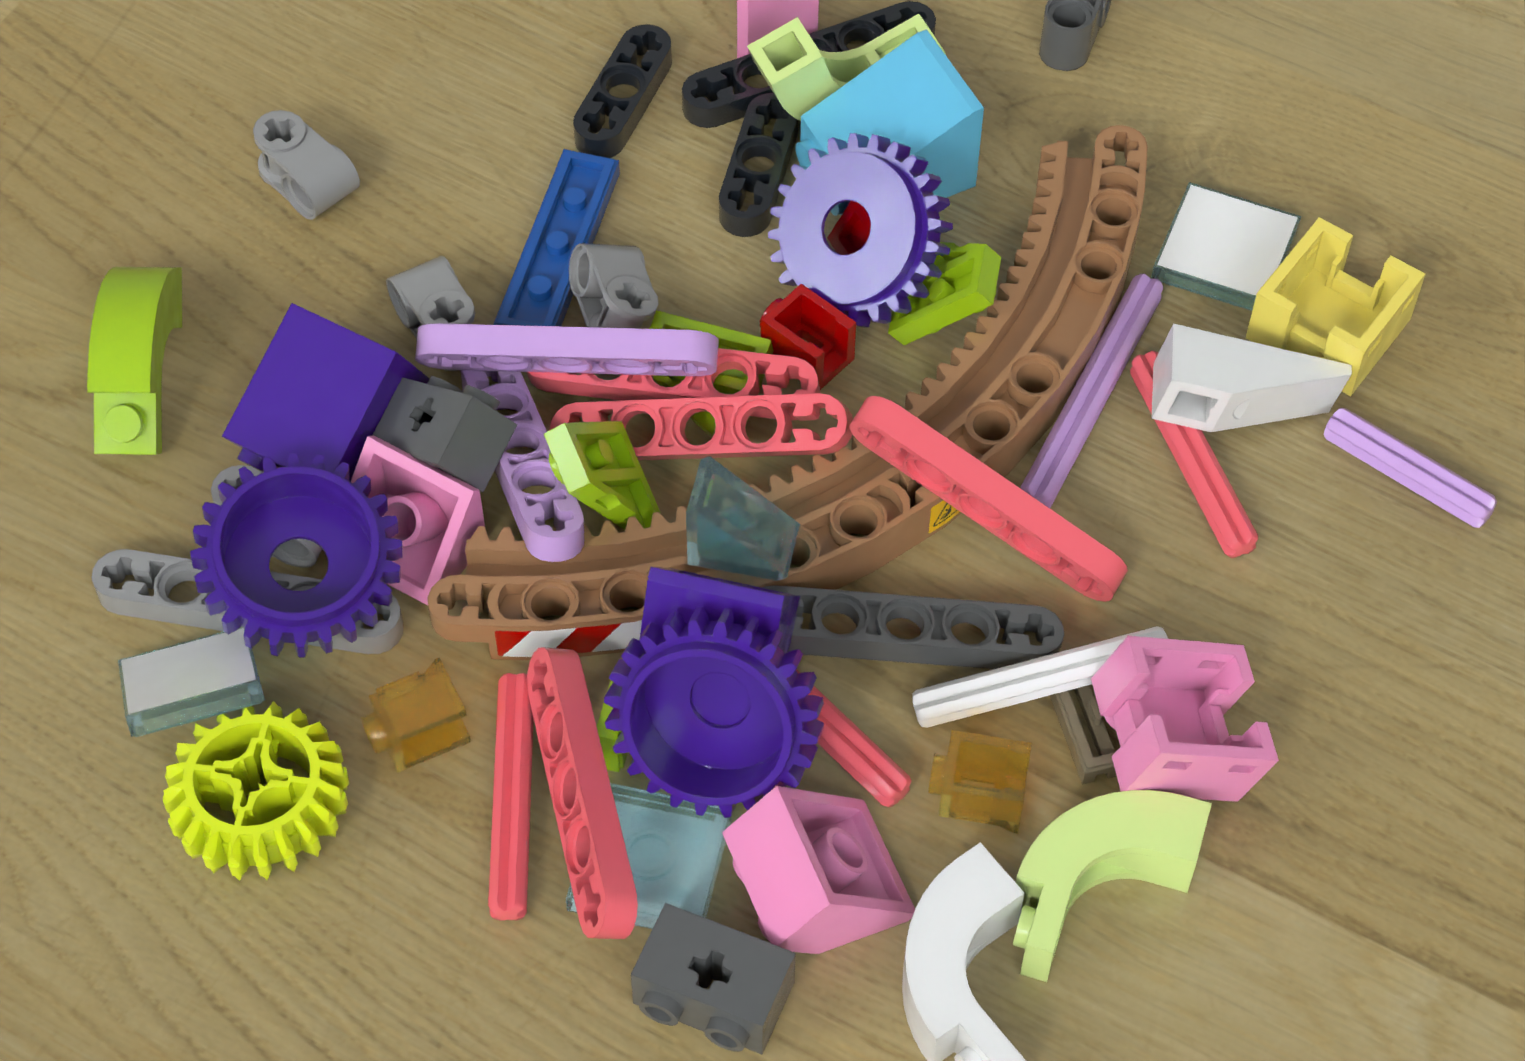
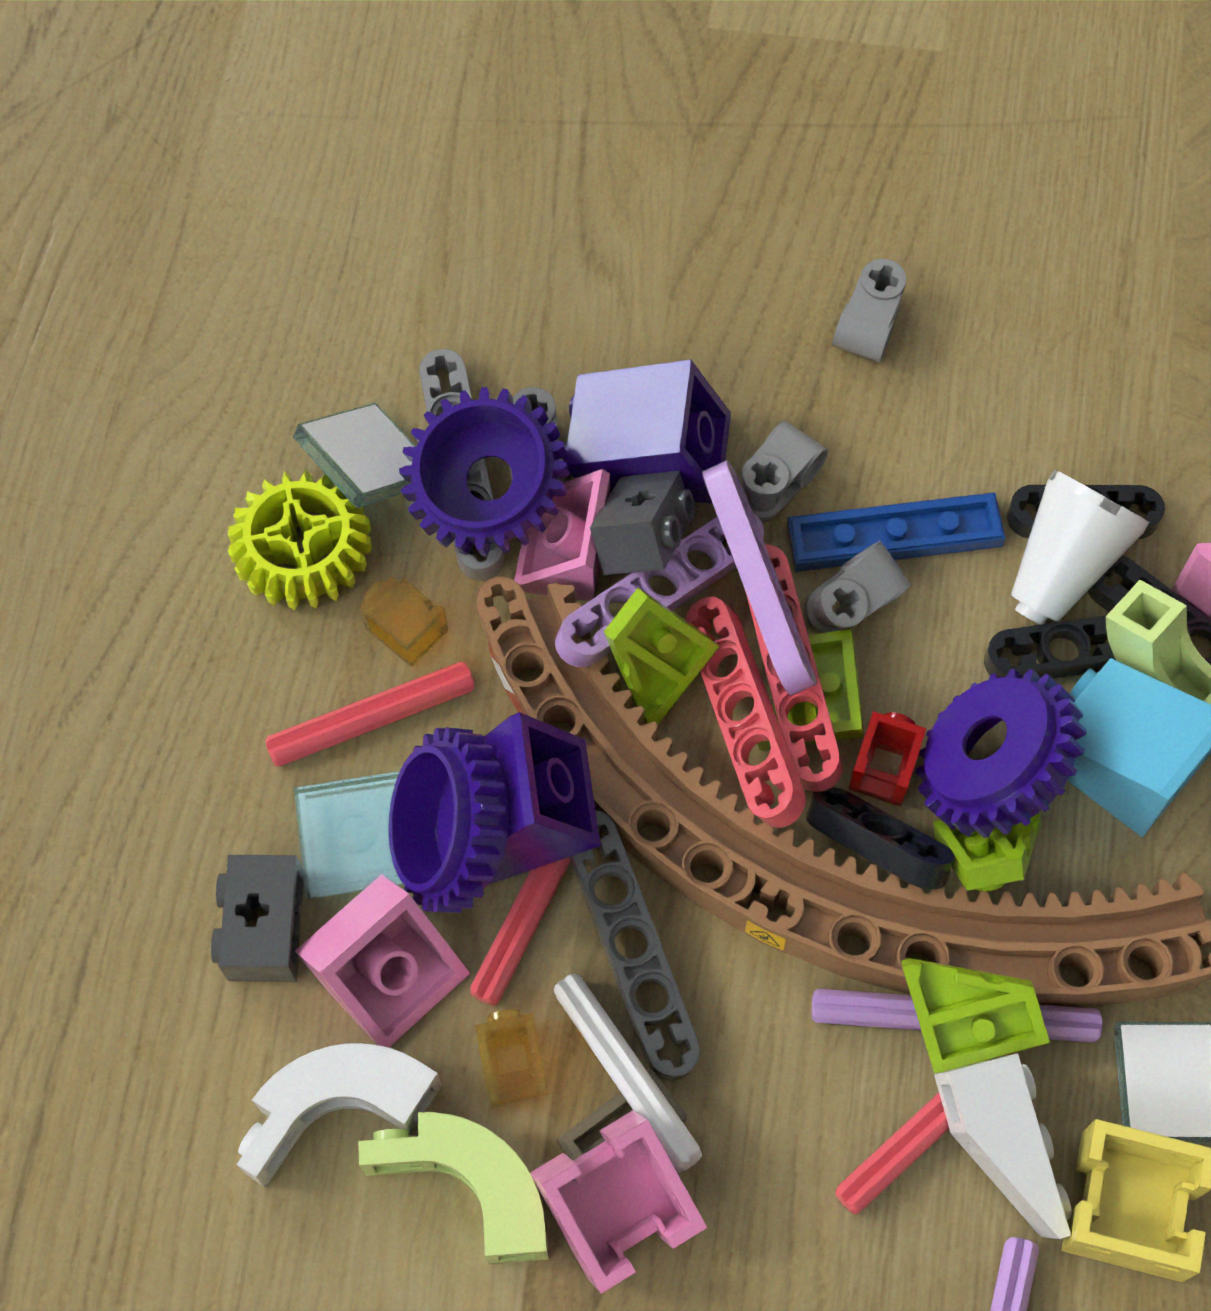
camera: 70 degrees right, 10 degrees up
(126, 356) = (630, 270): lime arch -> none
(581, 795) = (369, 758): coral beam -> none
(669, 97) = (1070, 547): none -> white cone
(736, 526) = (638, 770): clear light blue slope -> none
(902, 360) = (881, 838): none -> black beam
(988, 498) = (765, 962): coral beam -> none
(1110, 359) = (972, 1013): none -> lime wing

